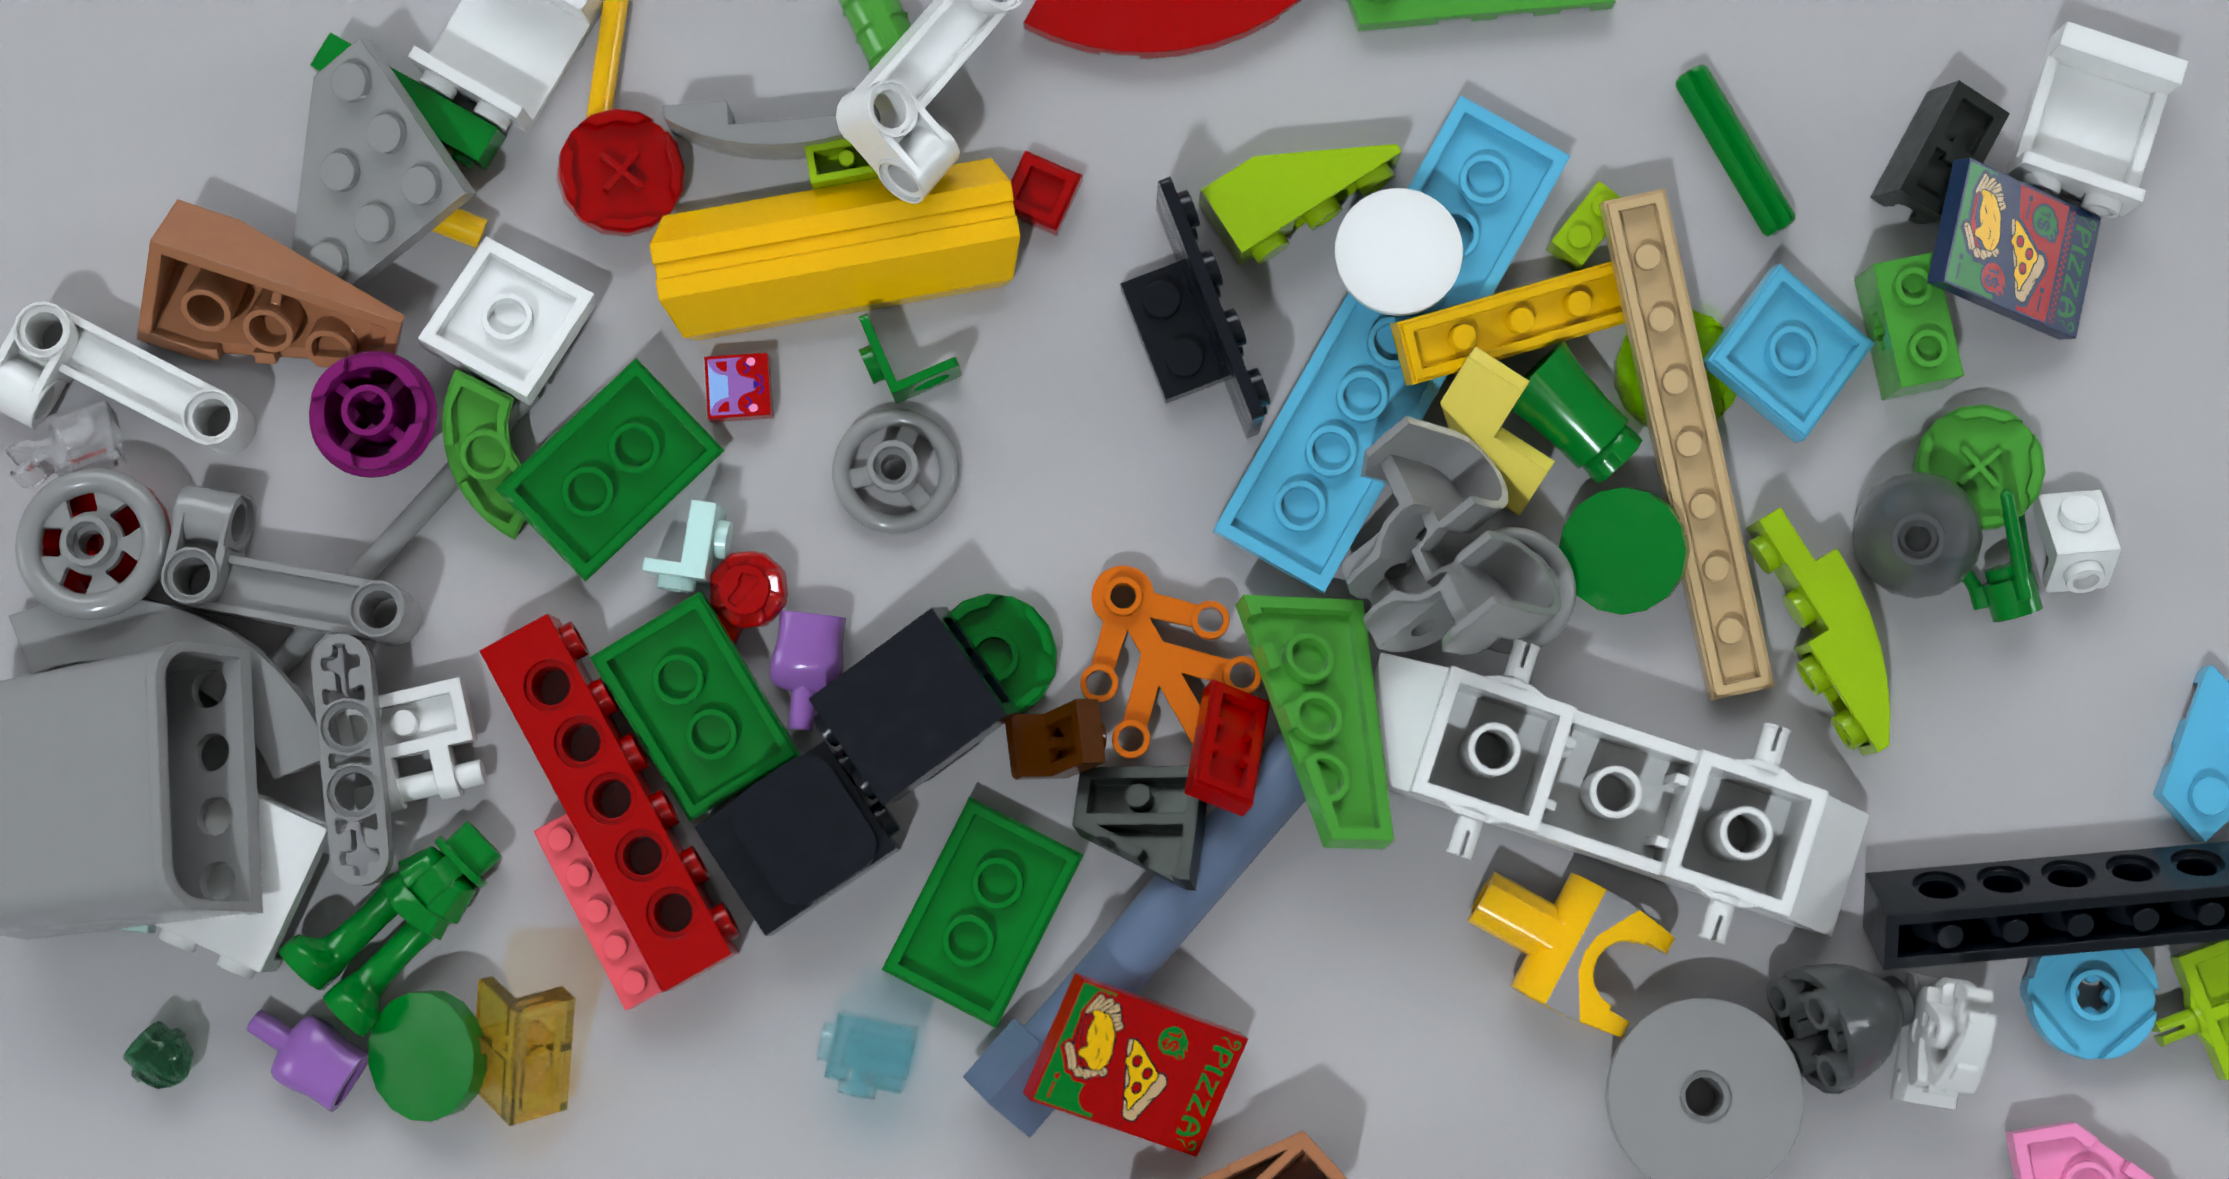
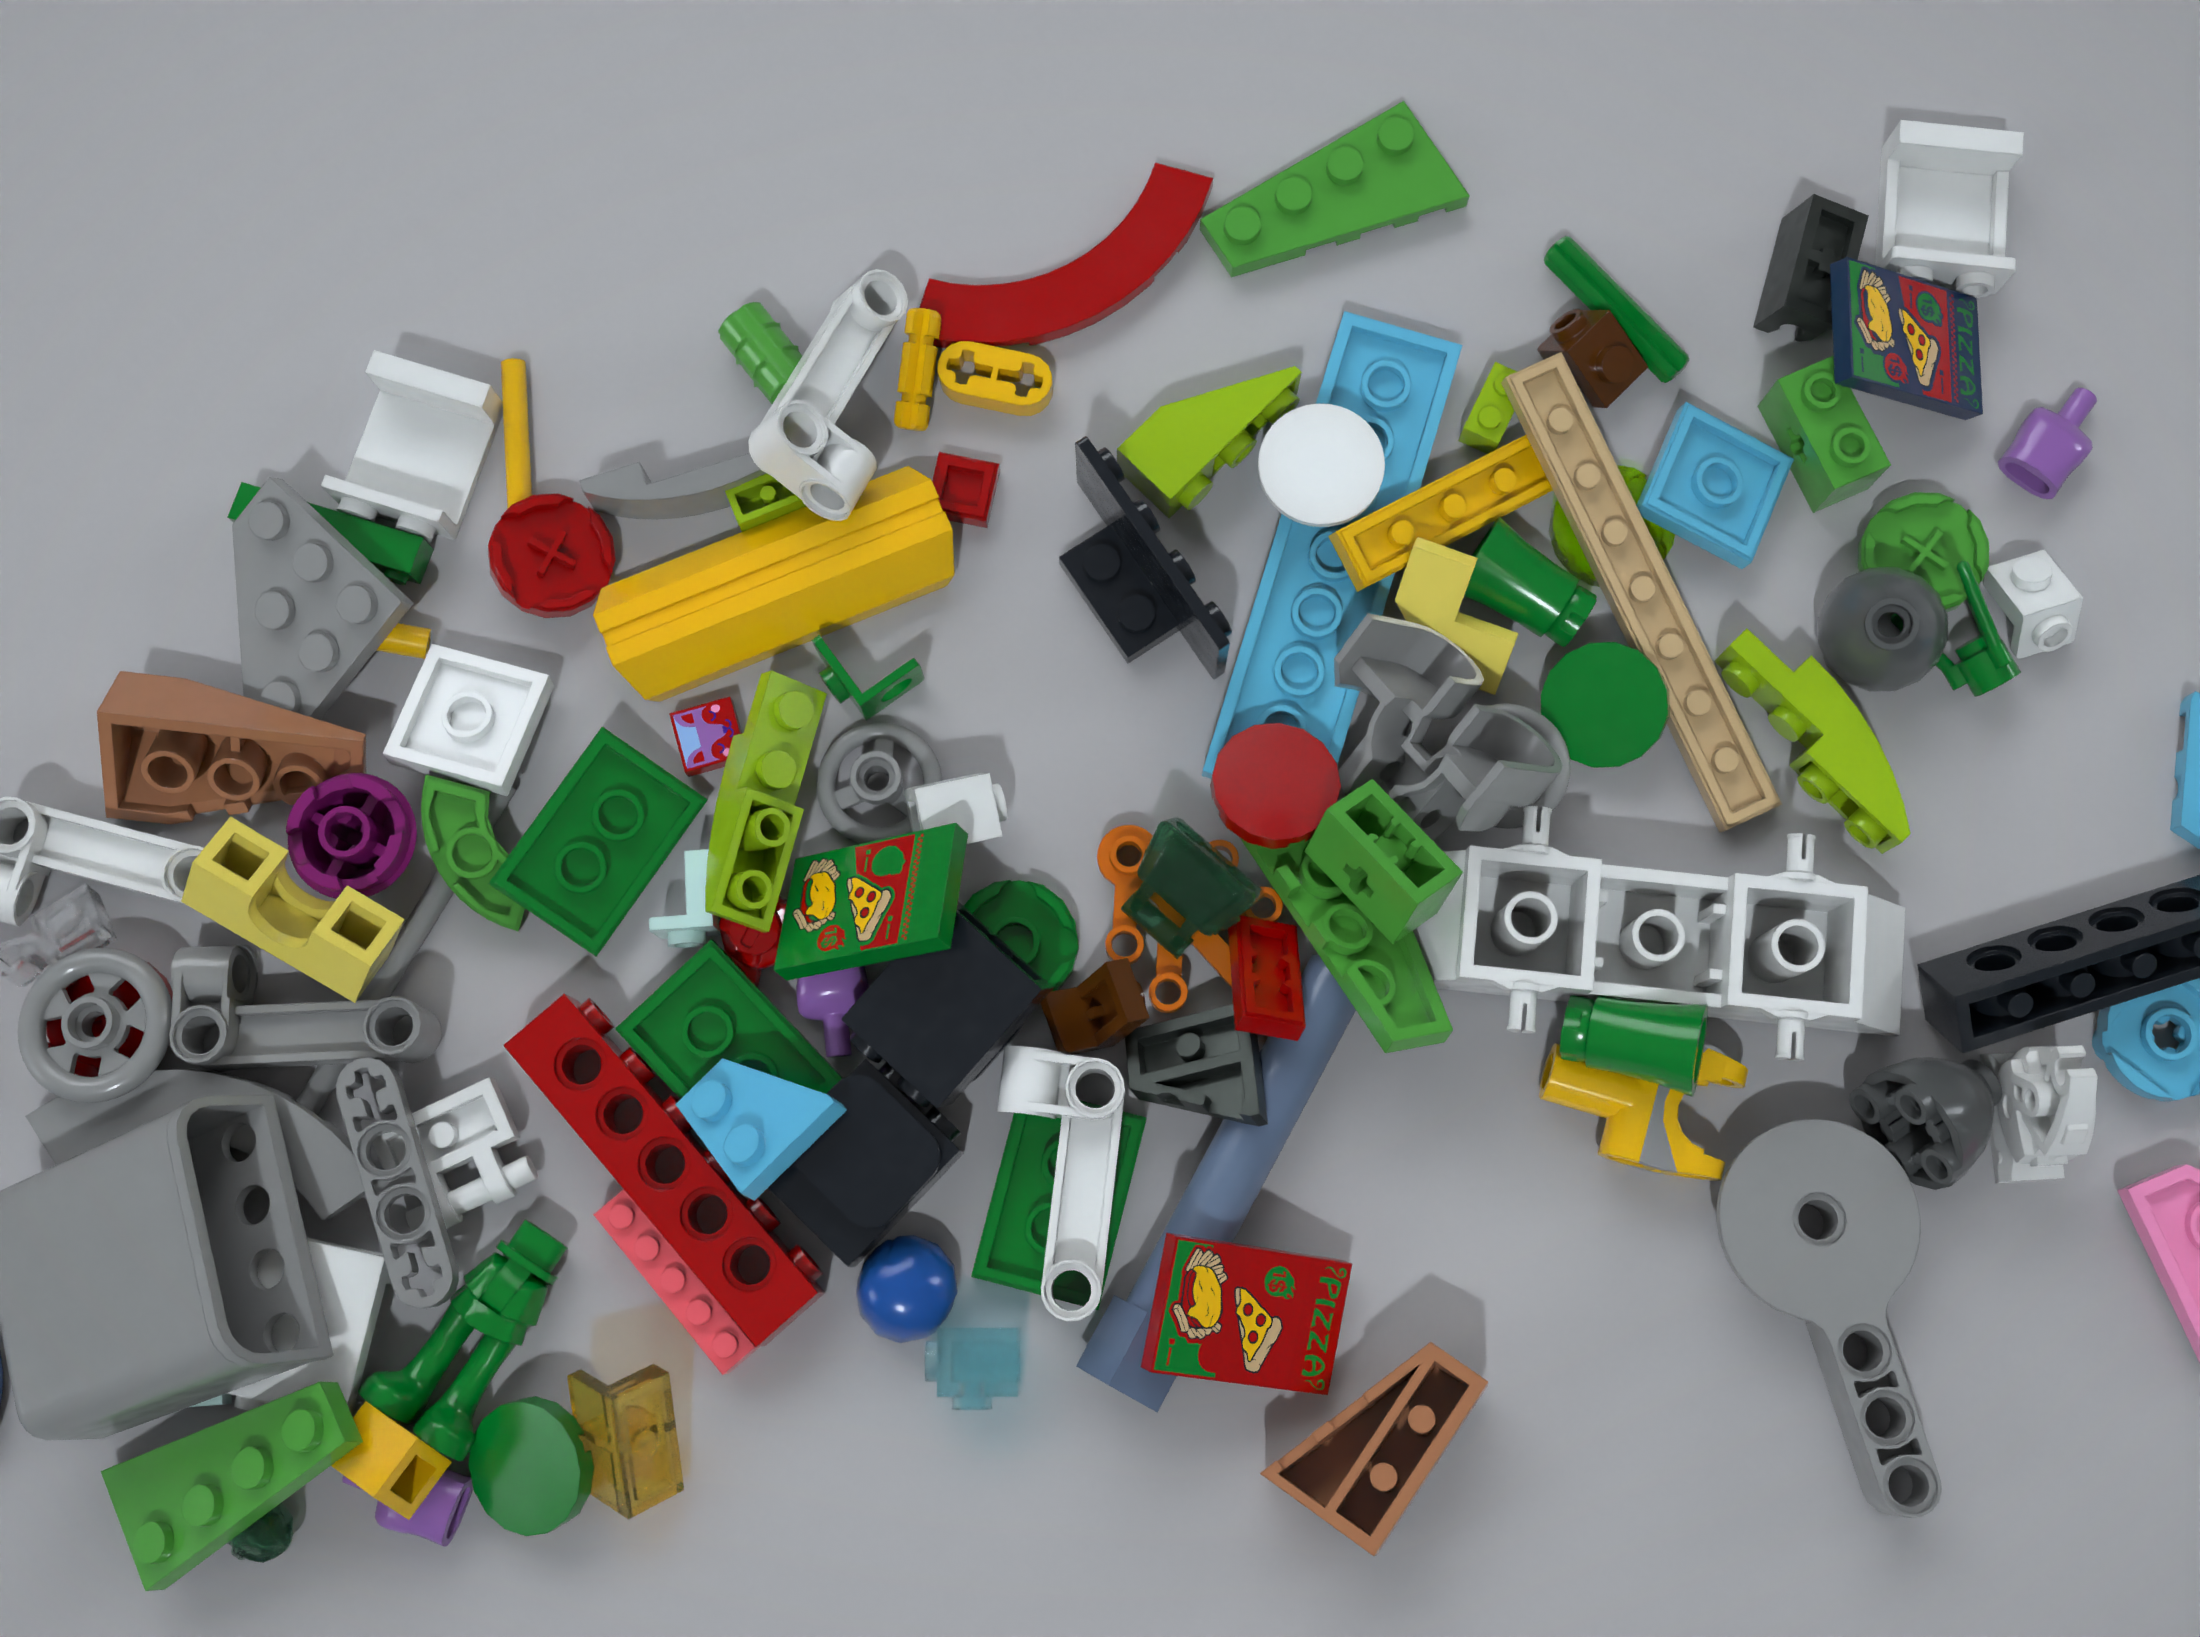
camera: 10 degrees left, 5 degrees down
(129, 1005) = (219, 1481): none -> bright green wing
(265, 450) = (246, 889): none -> light yellow arch
(293, 1020) = (391, 1462): none -> yellow brick
(705, 780) = (756, 1122): none -> medium azure wing
(771, 467) = (756, 802): none -> lime slope
(817, 967) = (906, 1288): none -> blue hair
(862, 592) = (872, 902): none -> tile
(962, 517) = (963, 800): none -> white brick
(1014, 887) = (1082, 1197): none -> white piece
(1021, 62) = (917, 369): none -> yellow axle
(1104, 73) = (992, 392): none -> yellow beam
(1178, 638) = (1191, 880): none -> clear green piece
(1279, 561) = (1274, 784): none -> red tile
(1364, 661) = (1382, 861): none -> bright green brick
(1571, 888) = (1637, 1039): none -> green plant
(1701, 192) = (1596, 353): none -> reddish brown bracket
(2134, 385) = (2049, 446): none -> medium lavender piece

